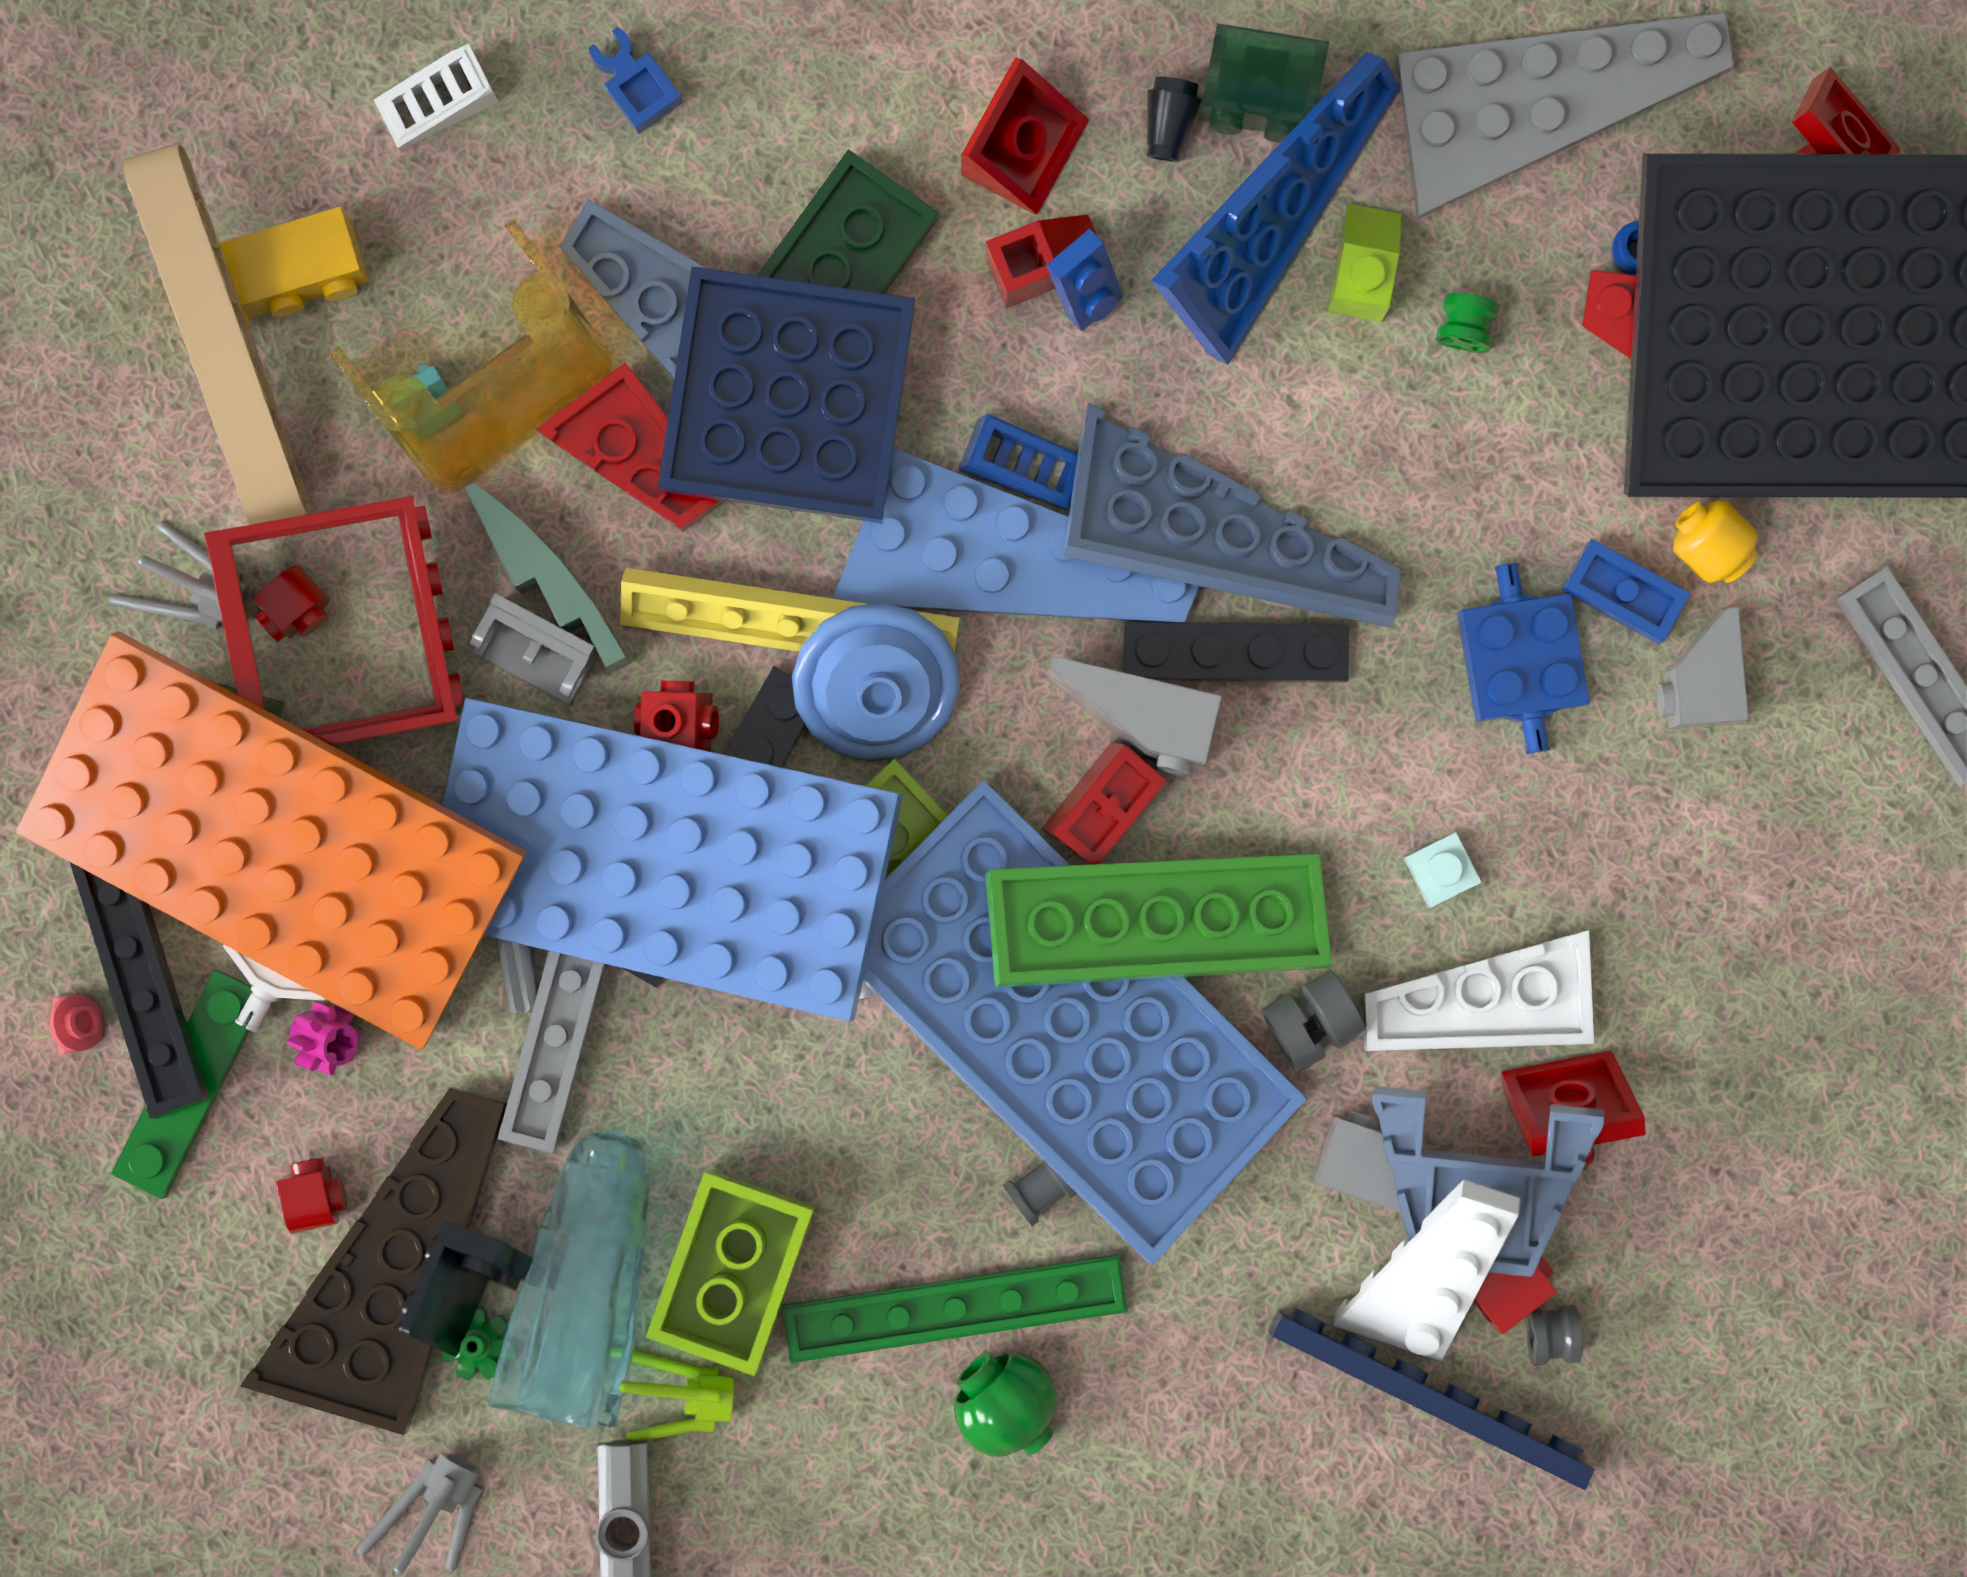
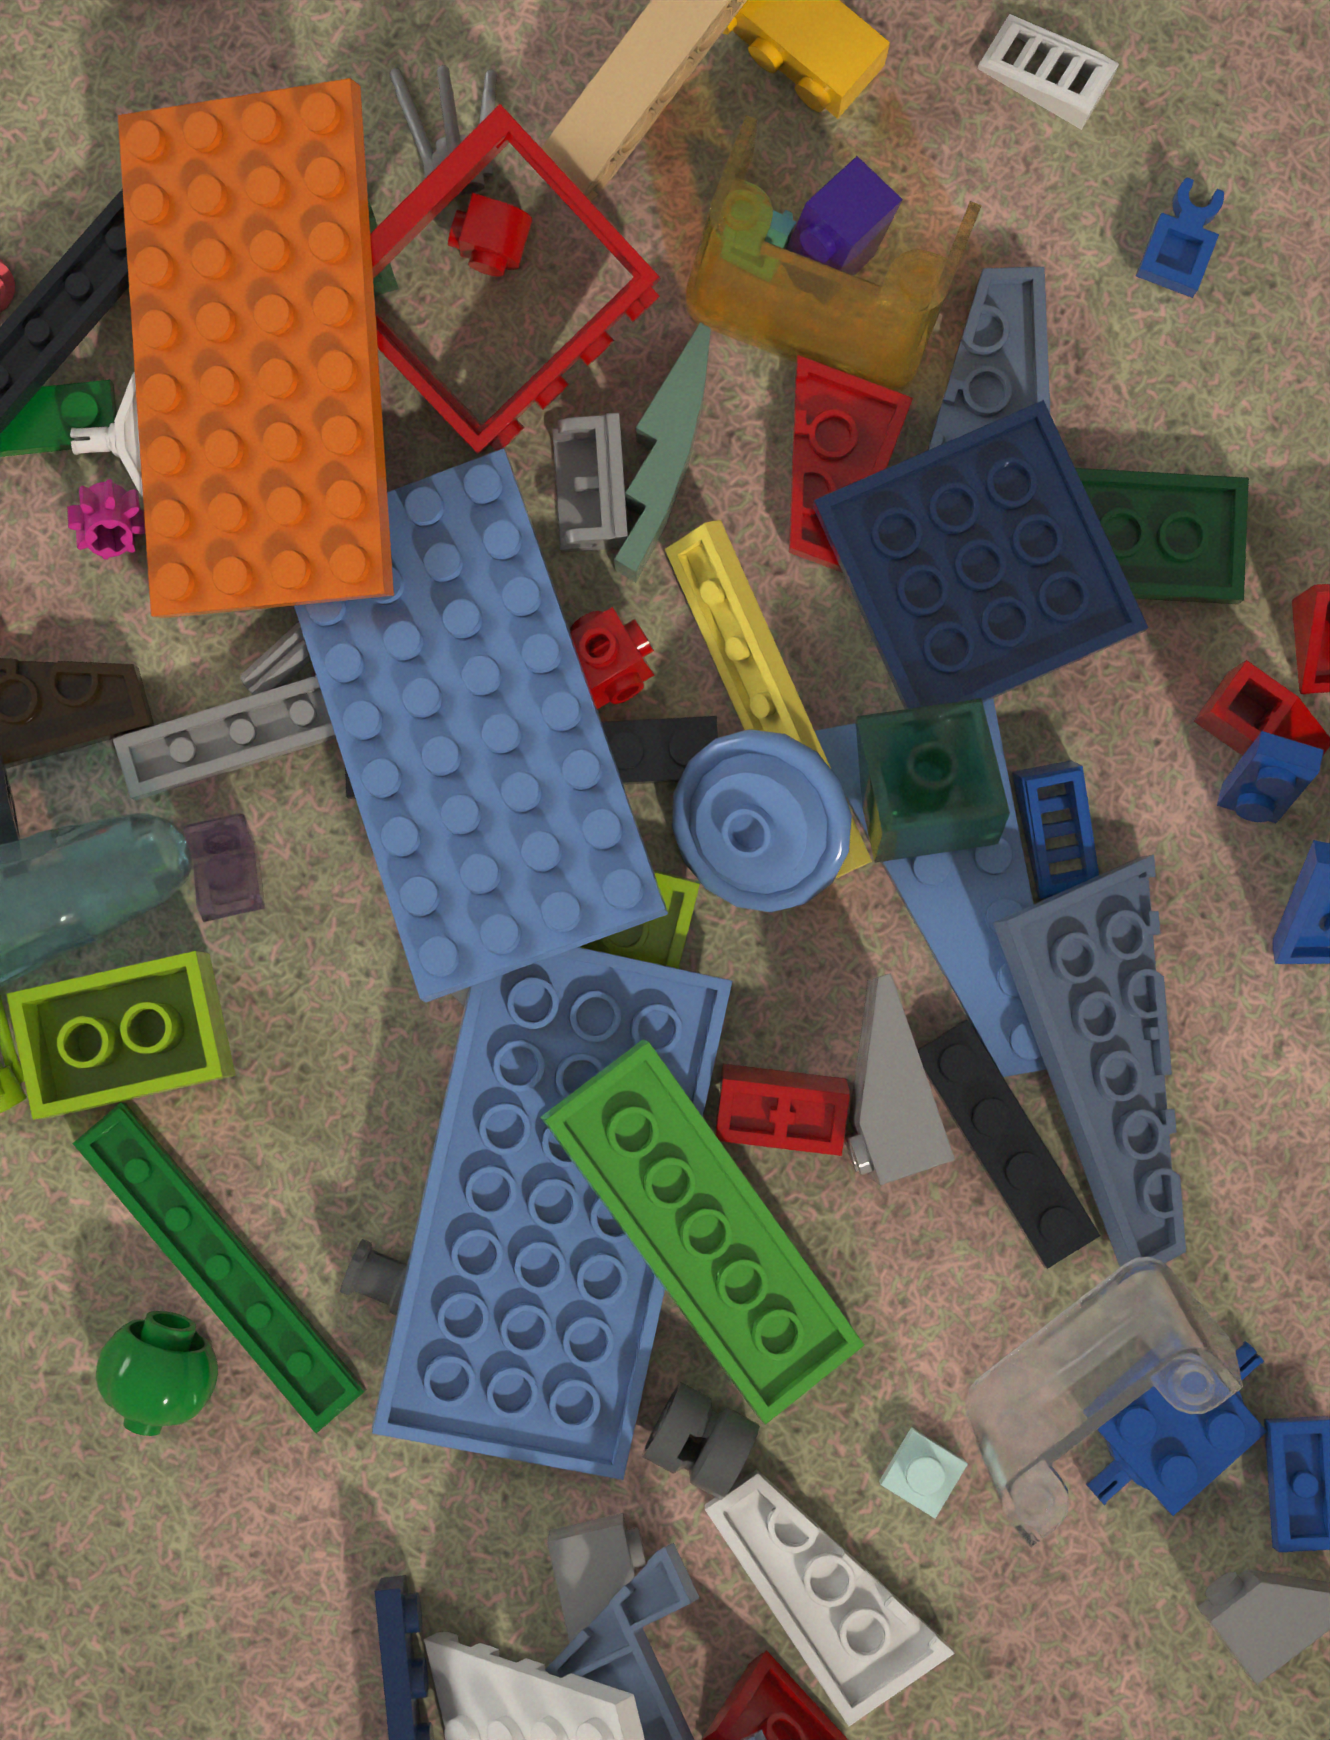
camera: 55 degrees right, 0 degrees up
(458, 328) = (846, 219): none -> dark purple brick
(652, 1113) = (225, 867): none -> bracket
(926, 535) = (930, 780): none -> clear green slope
(1436, 703) = (1085, 1369): none -> clear windscreen

